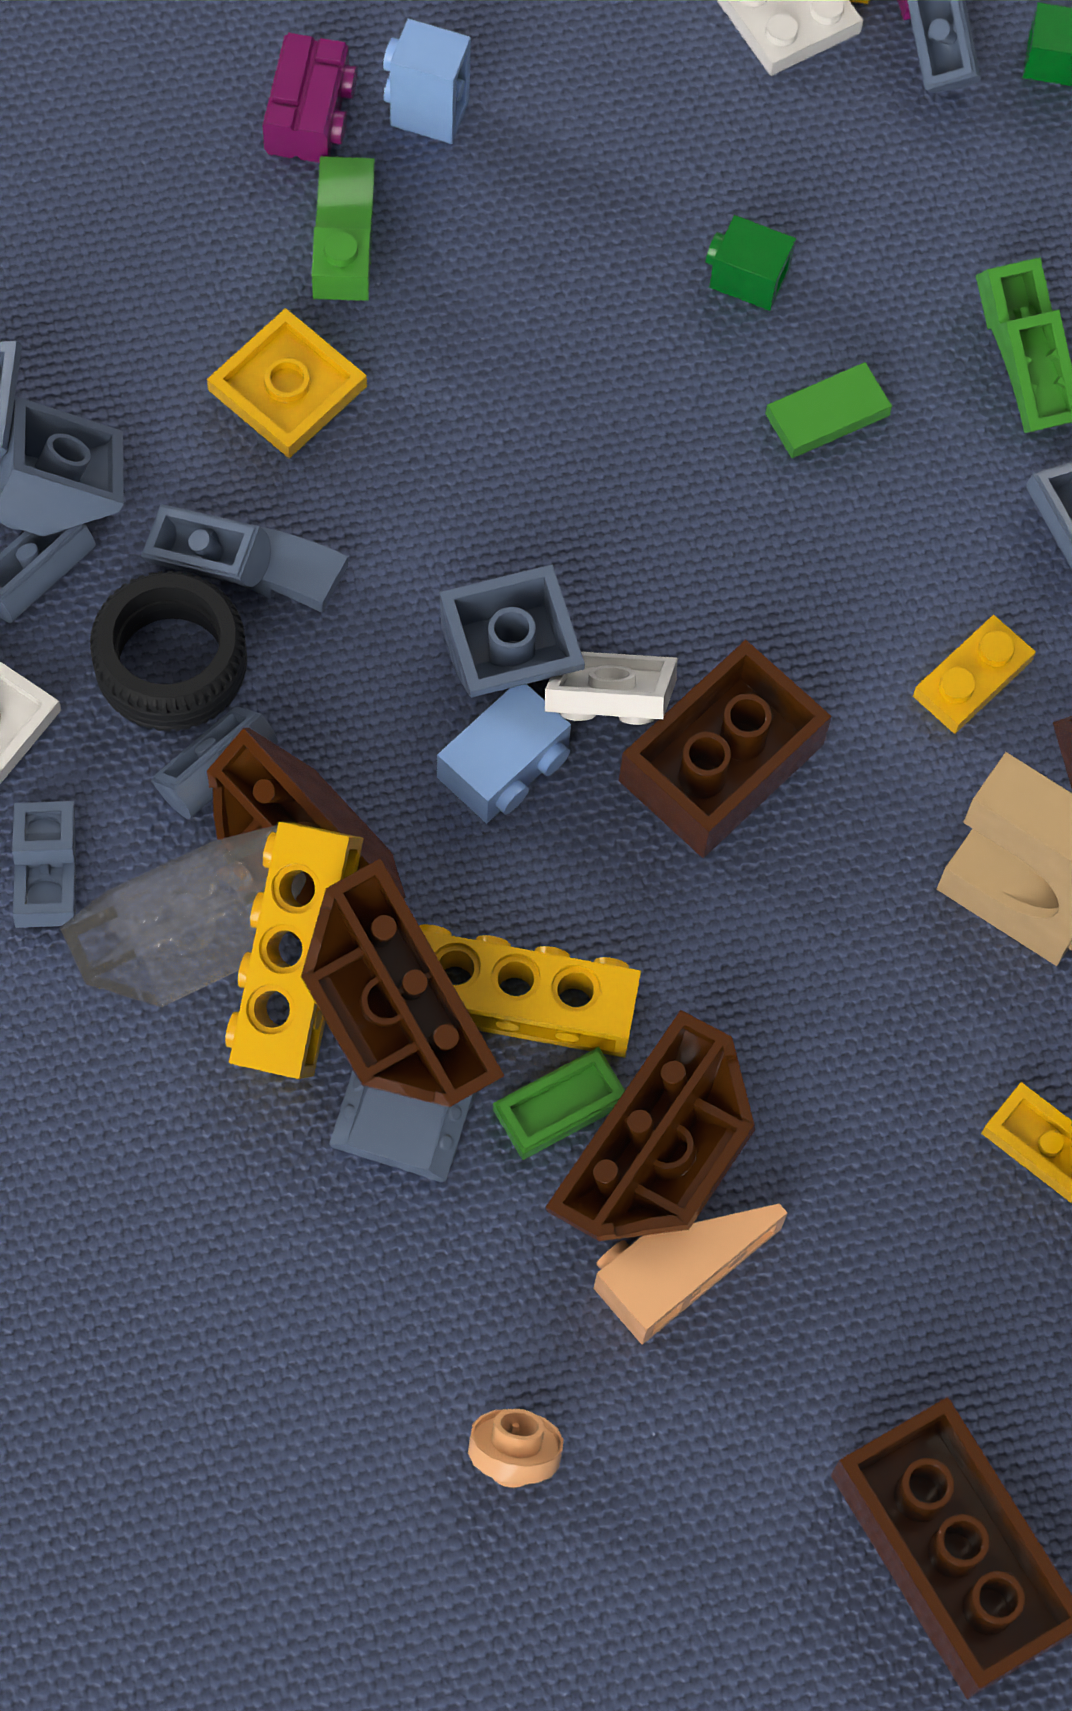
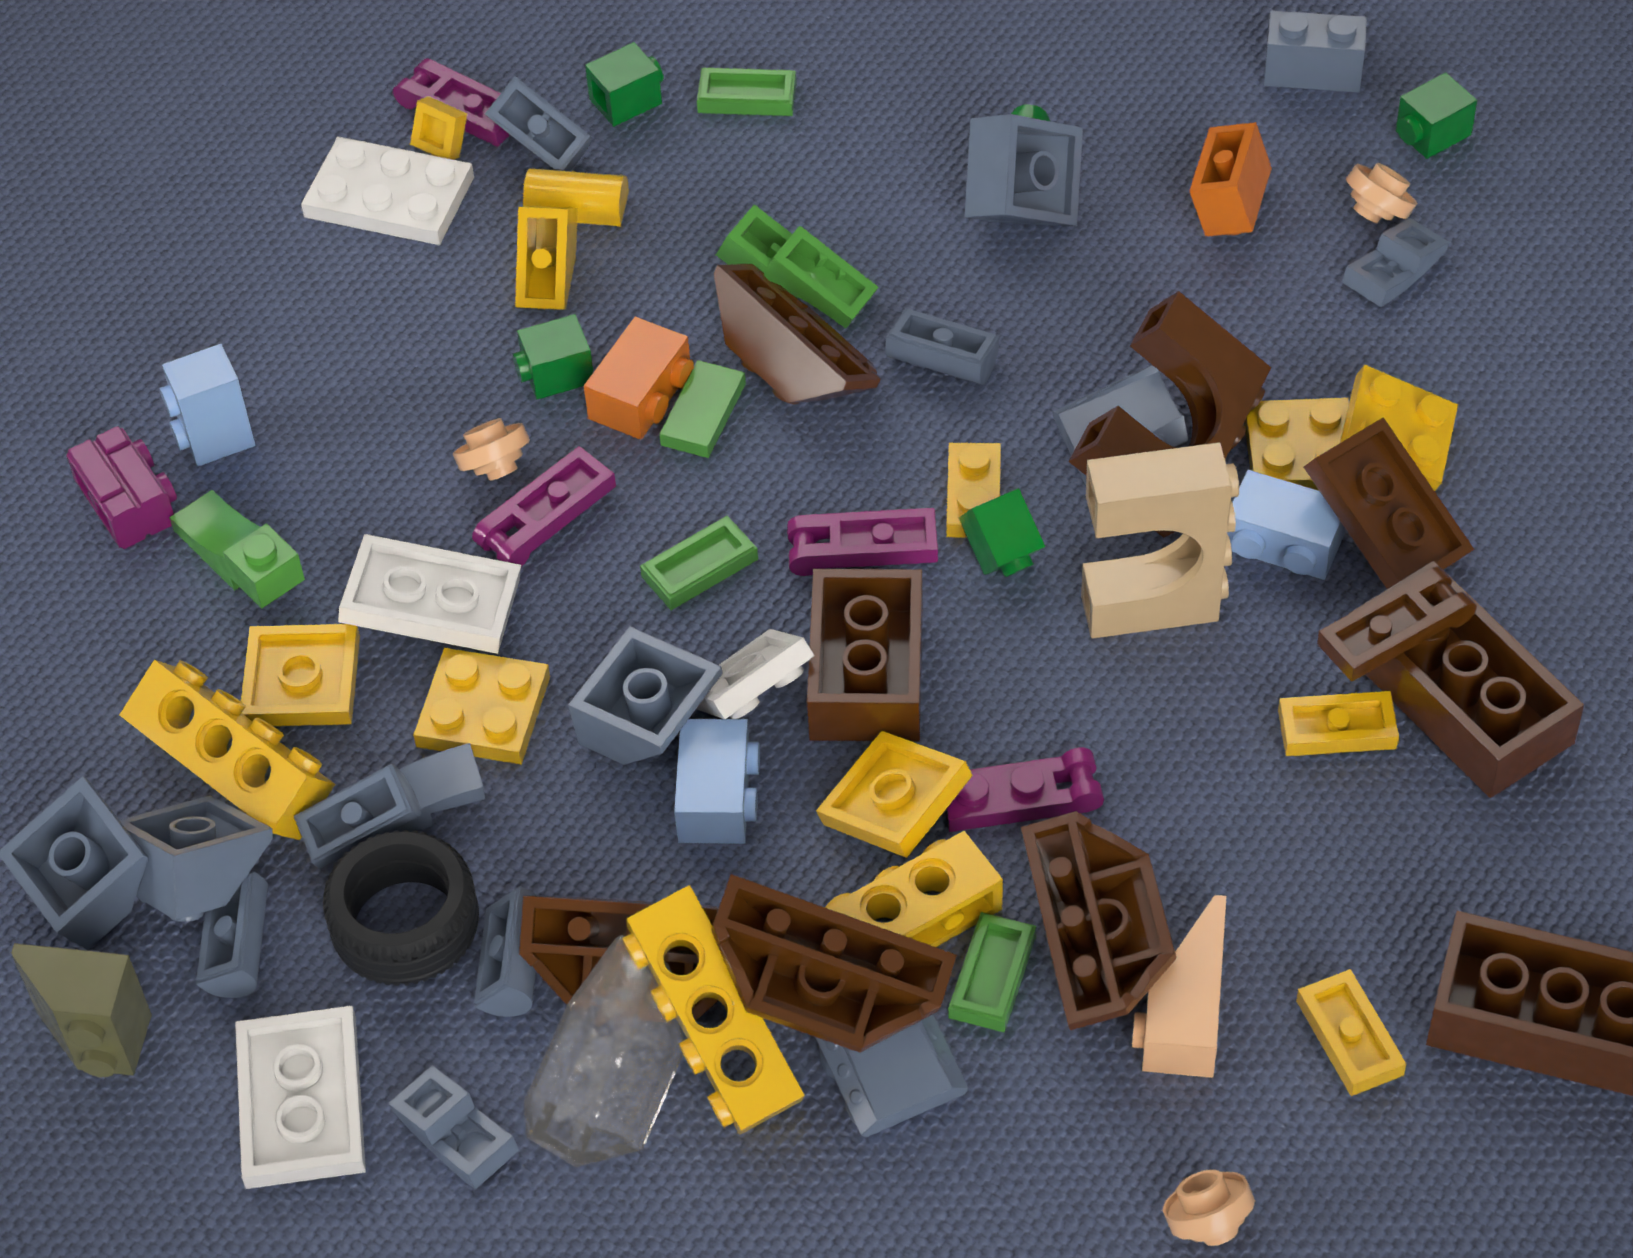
camera: 35 degrees left, 15 degrees down
(167, 400) = (162, 713): none -> yellow brick
(400, 528) = (482, 703): none -> yellow plate
(444, 397) = (430, 593): none -> white plate
(612, 394) = (544, 506): none -> magenta plate
(618, 306) = (492, 448): none -> light nougat plate
(627, 888) = (894, 793): none -> yellow plate
(689, 548) = (699, 562): none -> bright green tile
(736, 972) = (1026, 791): none -> magenta plate
(778, 1411) = (1351, 1032): none -> yellow plate
(798, 339) = (638, 378): none -> orange brick
(835, 642) = (862, 539): none -> magenta plate
(836, 158) = (545, 256): none -> yellow slope
(917, 122) = (597, 196): none -> yellow brick
(945, 738) = (1002, 534): none -> green brick
(954, 409) = (786, 339): none -> reddish brown wedge

